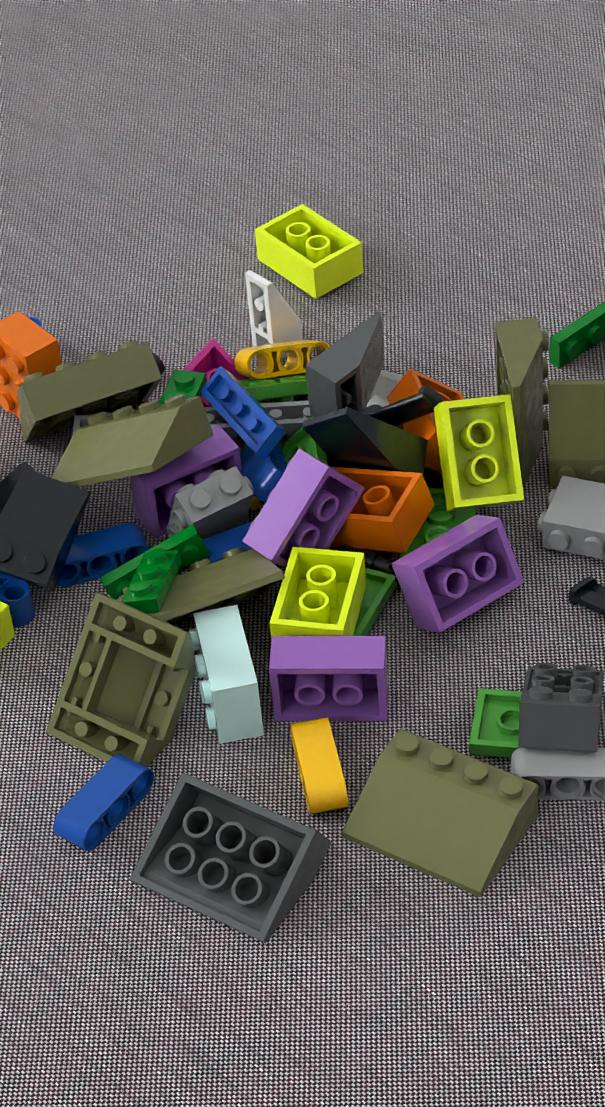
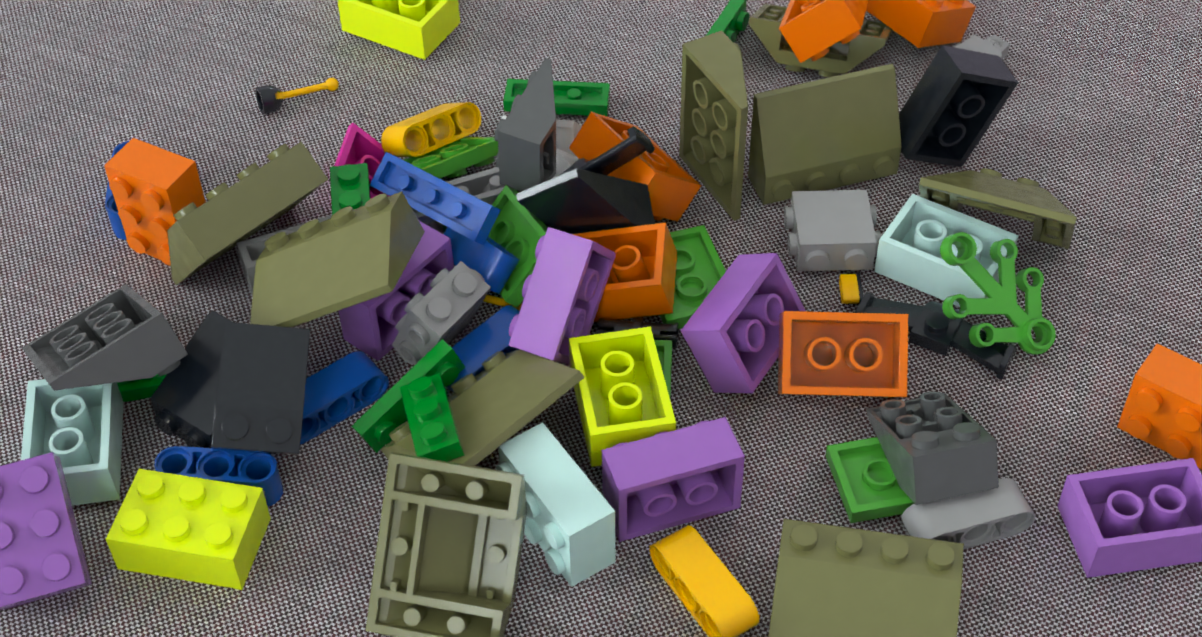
camera: 25 degrees left, 5 degrees up
(168, 305) = (271, 98): none -> hinge
(270, 314) = (400, 84): white slope -> none
(421, 356) = (569, 96): none -> green plate
(478, 452) = (710, 187): neon yellow brick -> none
(526, 617) = (843, 354): none -> orange brick
(582, 569) = (850, 288): none -> yellow piece

